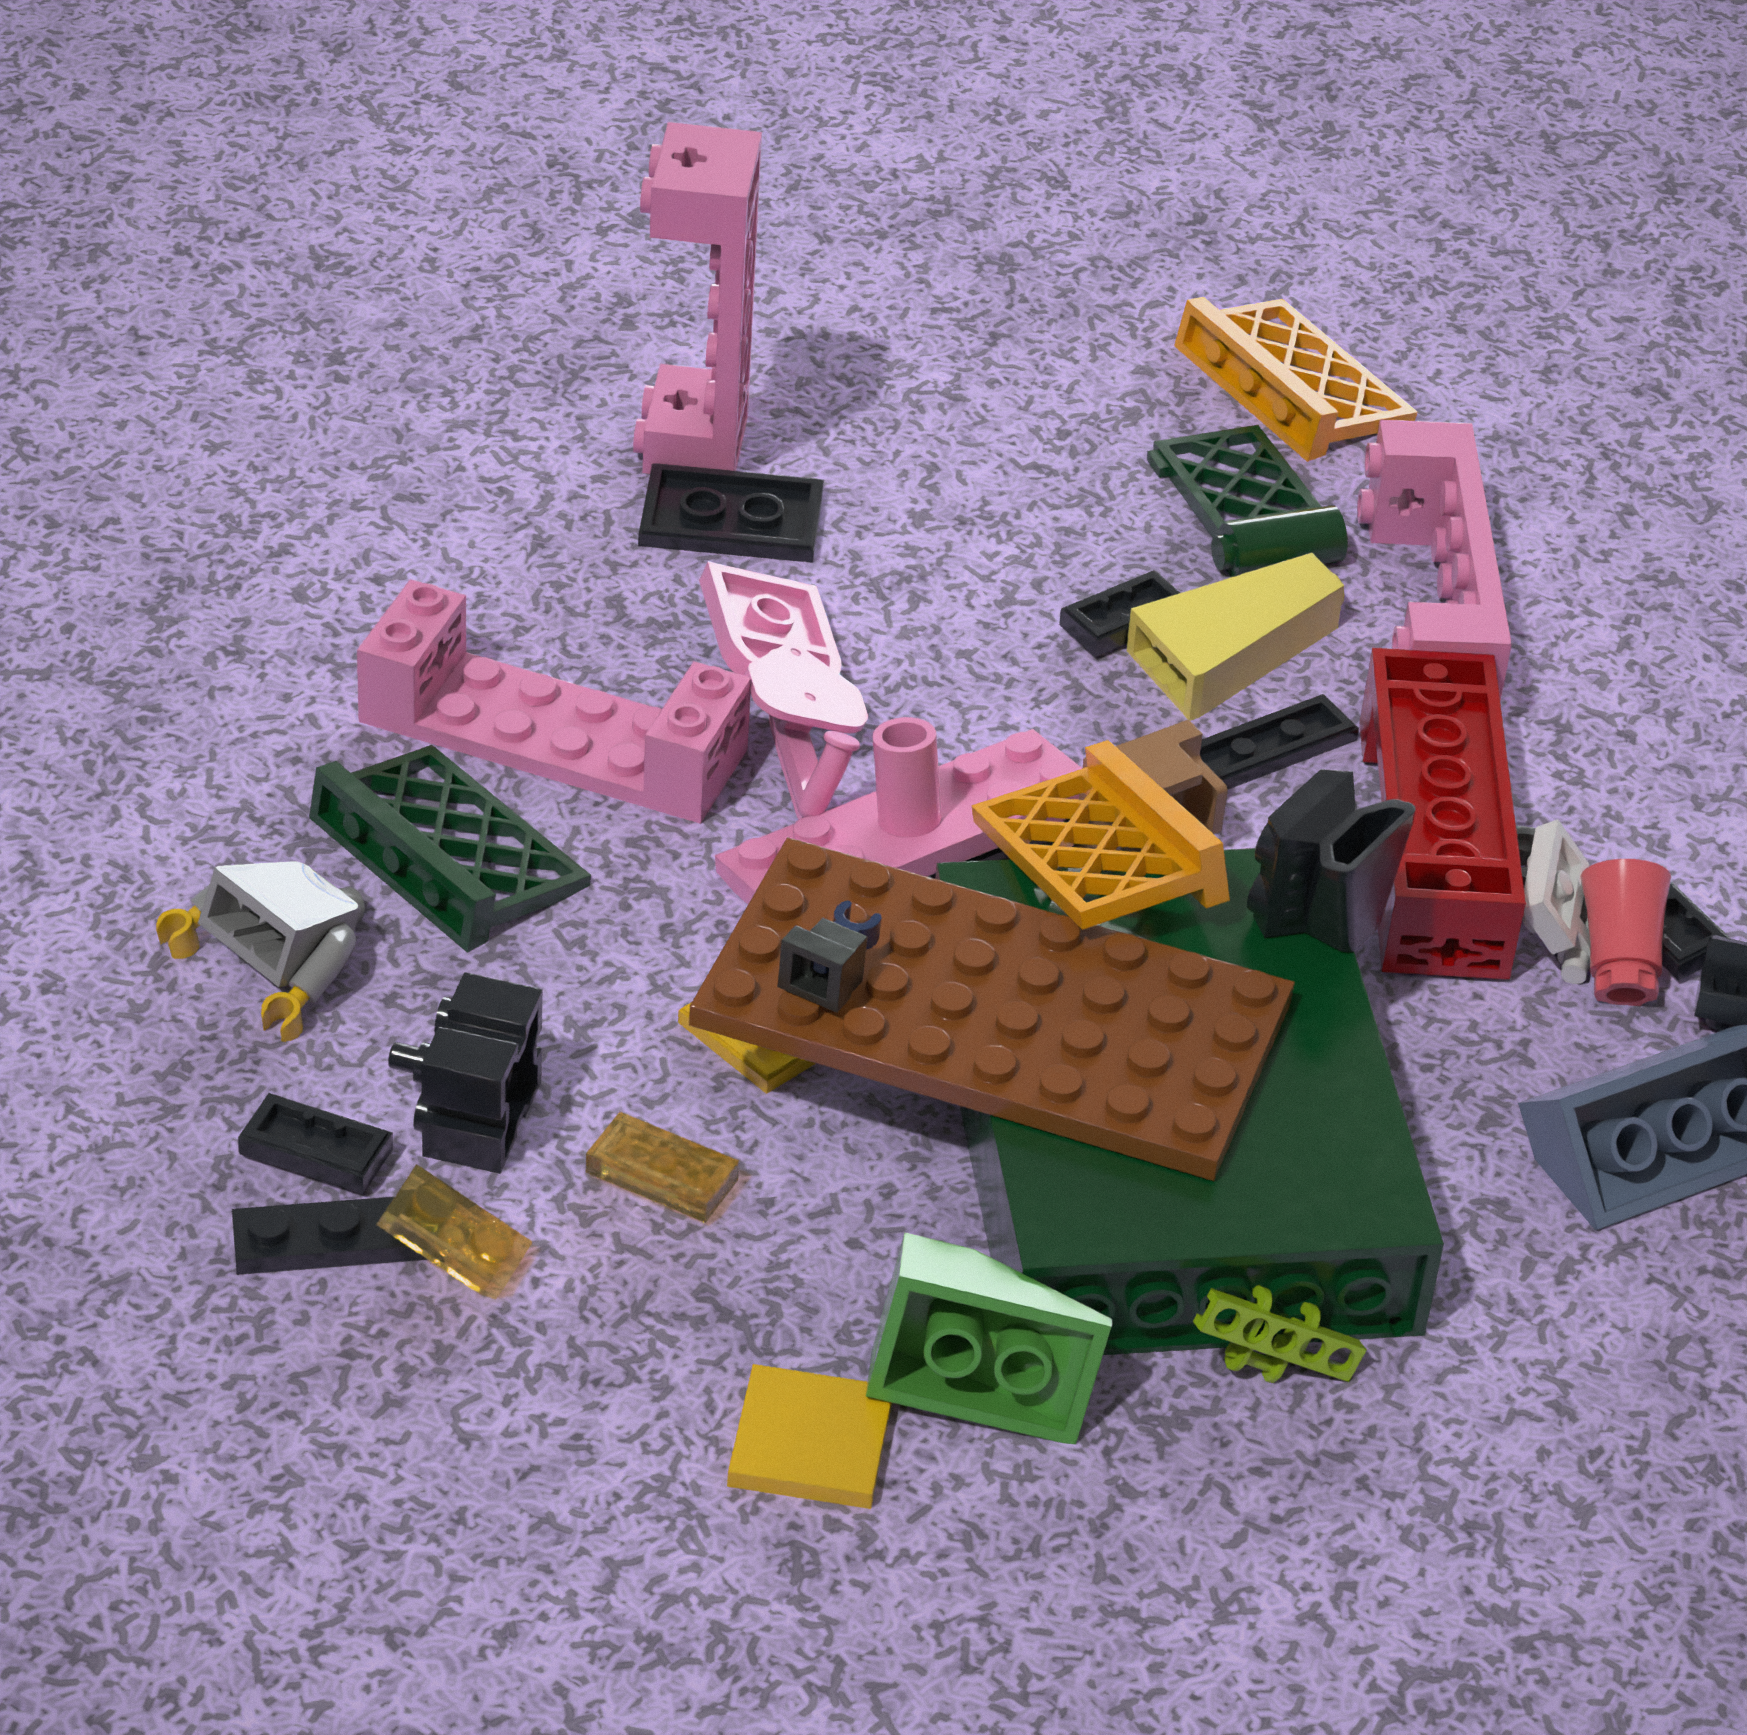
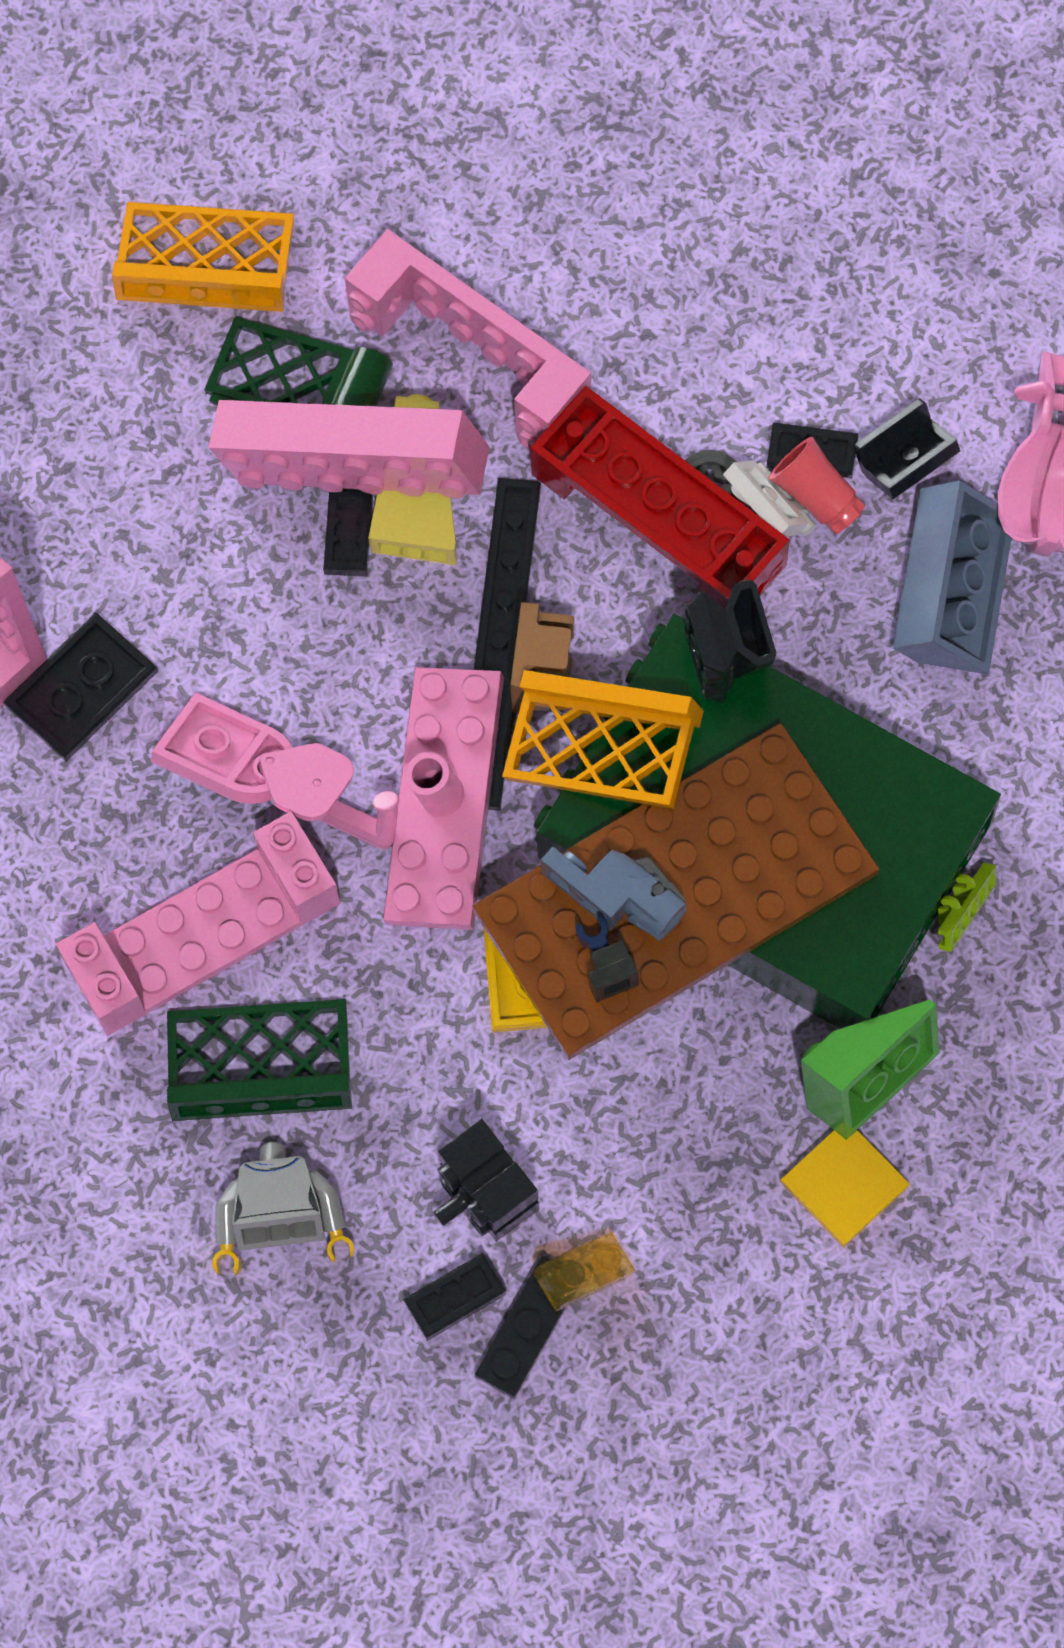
camera: 45 degrees left, 30 degrees up
(662, 1166) = (606, 1124): clear yellow plate -> none
(931, 921) = (619, 888): none -> sand blue plate
(1208, 518) = (350, 447): none -> bright pink brick

